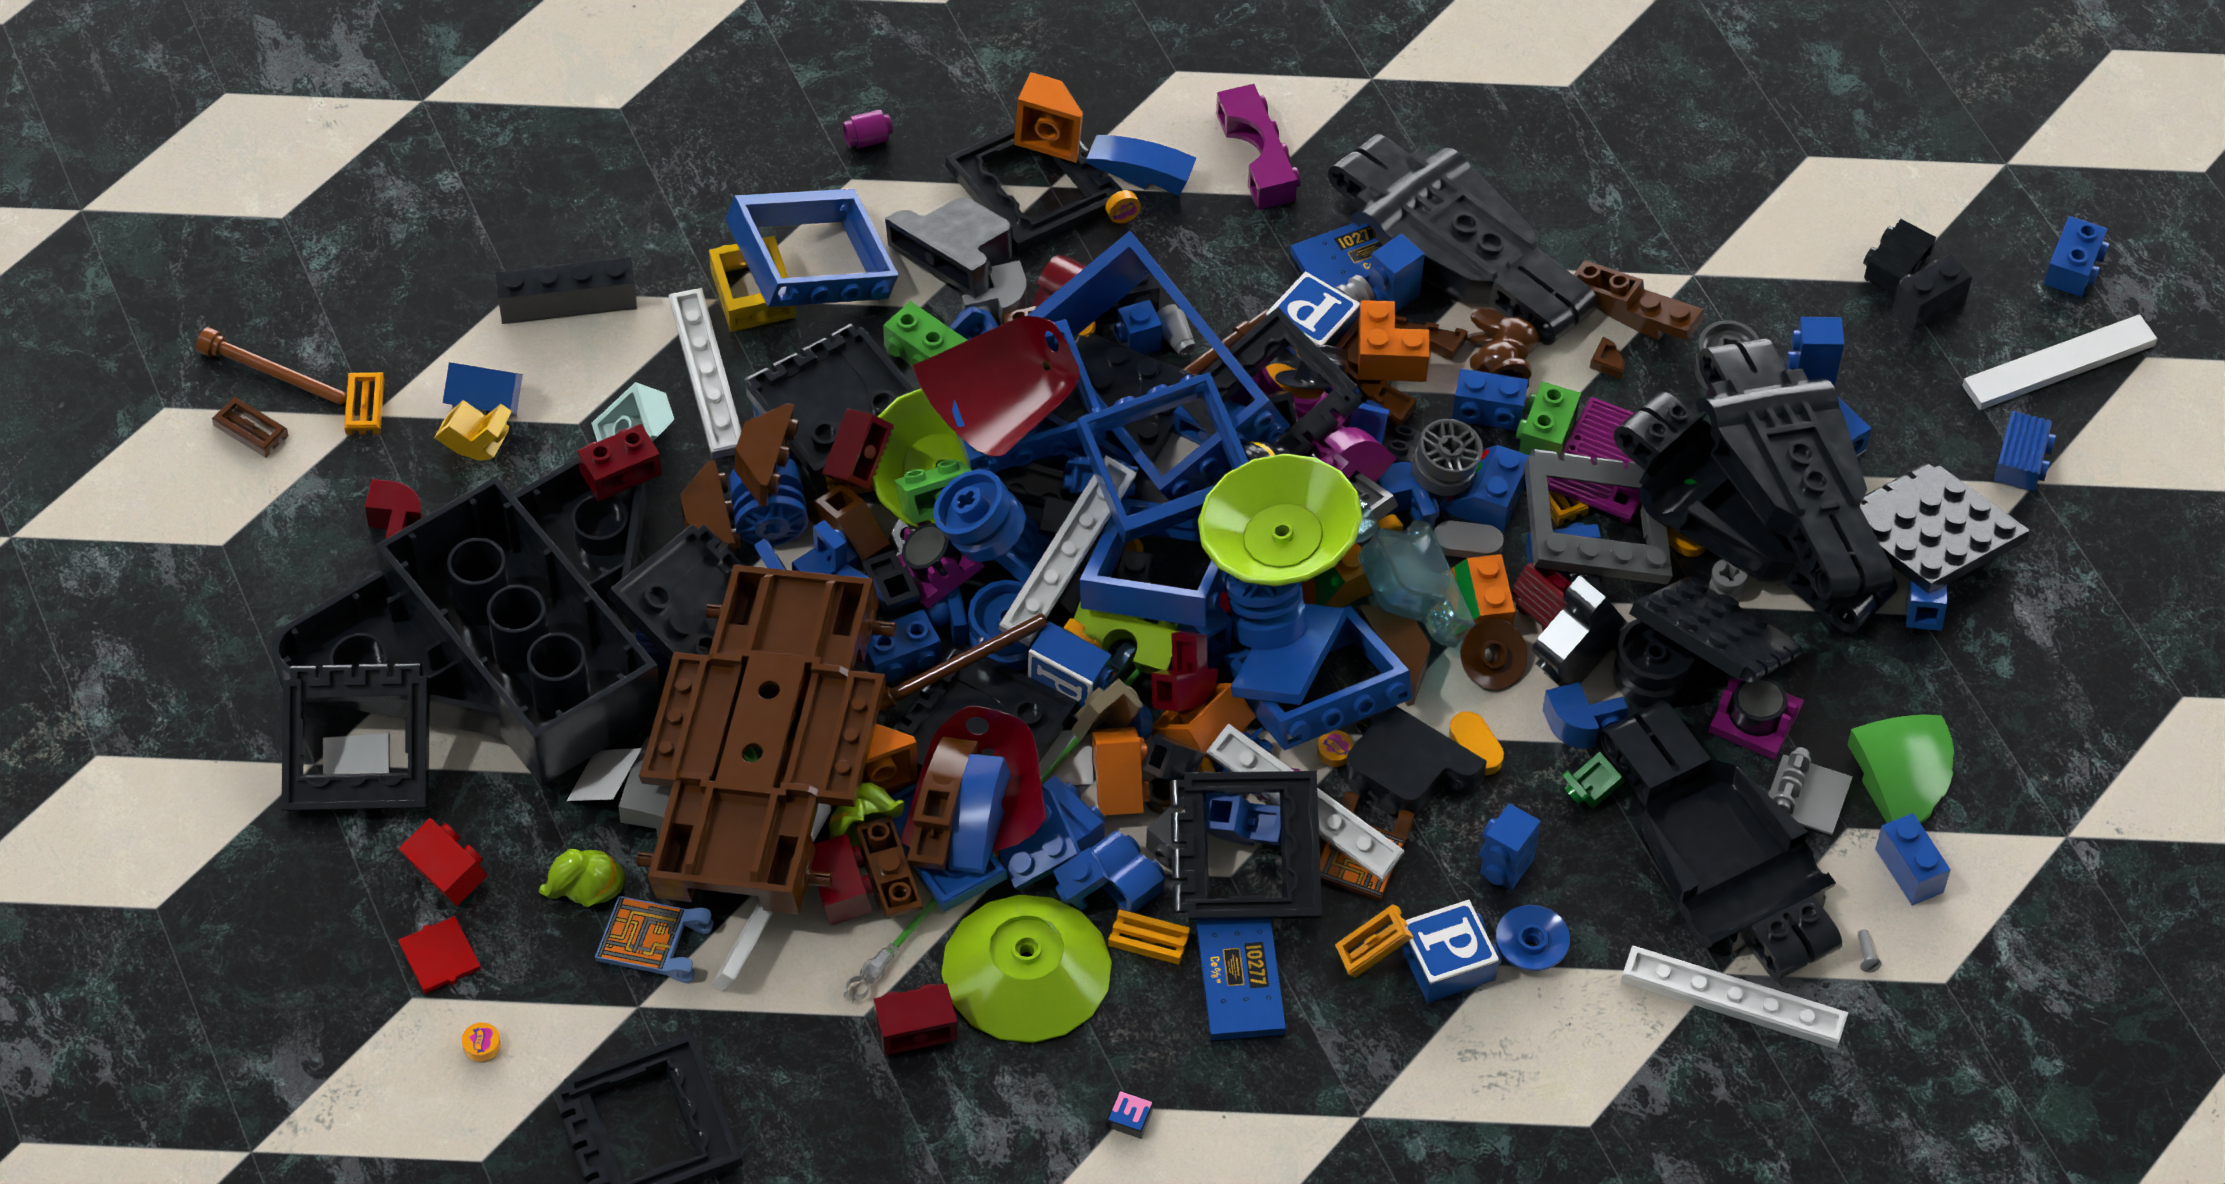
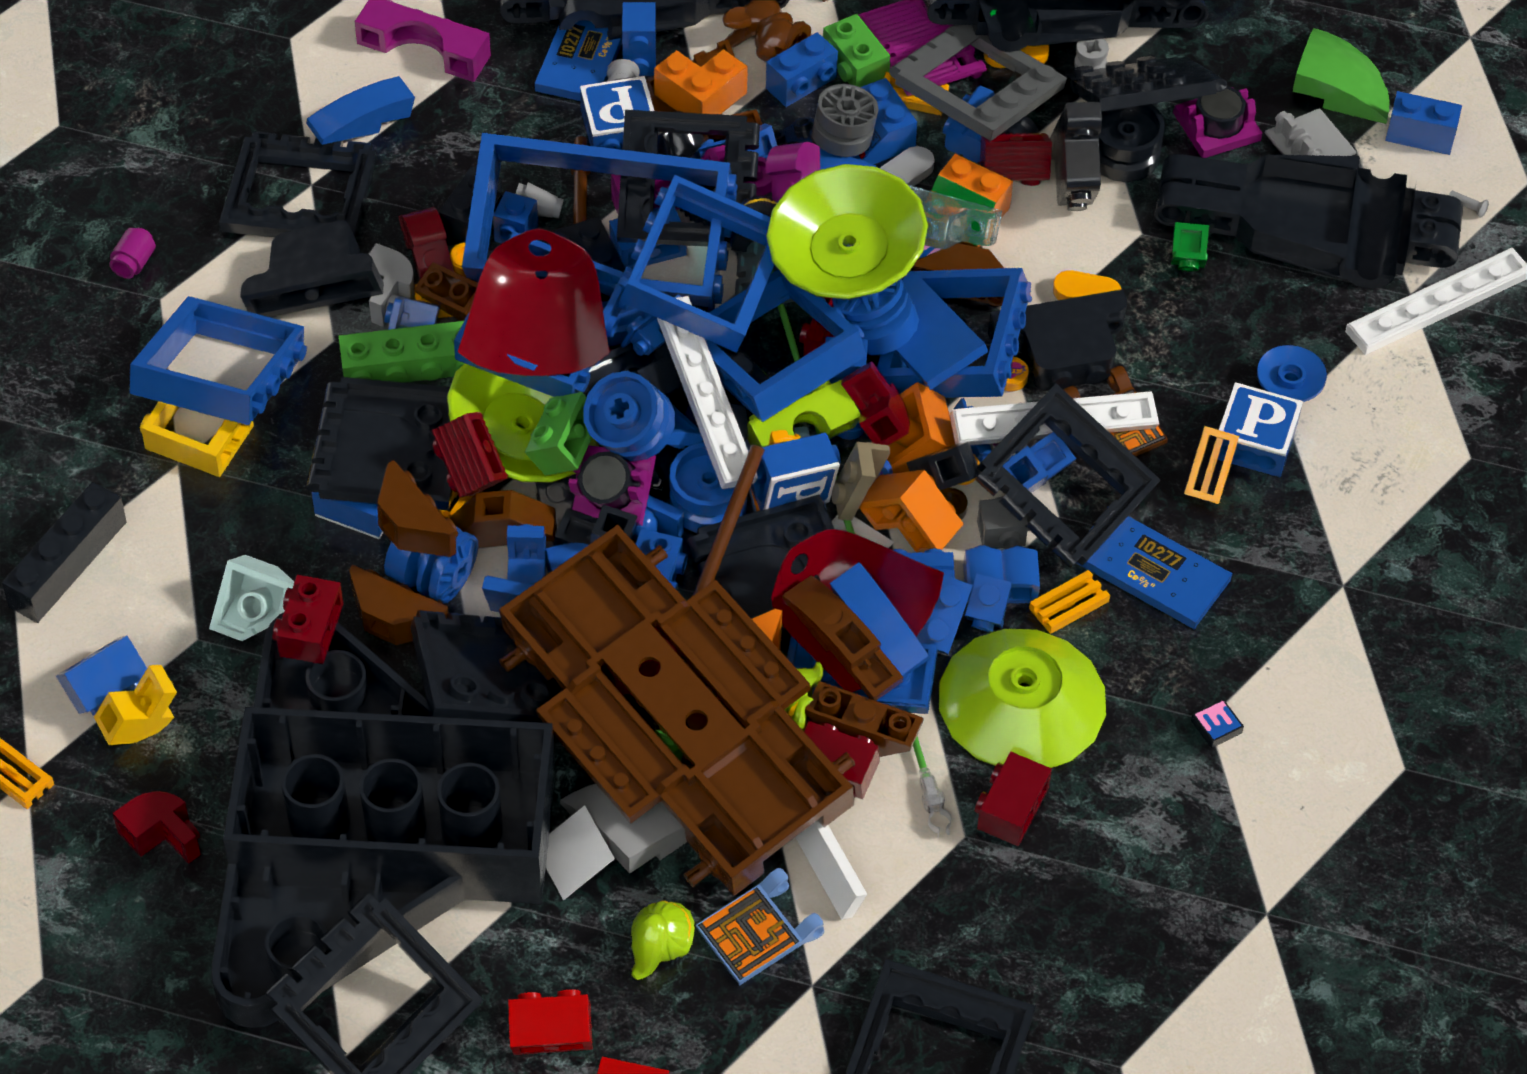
camera: 50 degrees left, 0 degrees up
(356, 754) = (367, 1022): white sticker -> none
(706, 371) = (246, 518): white tile -> none
(1048, 118) = (271, 129): orange slope -> none
(1123, 206) = (387, 152): light orange tile -> none
(1507, 650) = (1026, 223): reddish brown dish -> none
(1509, 846) = (1210, 328): blue brick -> none
(1575, 720) = (1126, 219): blue brick -> none

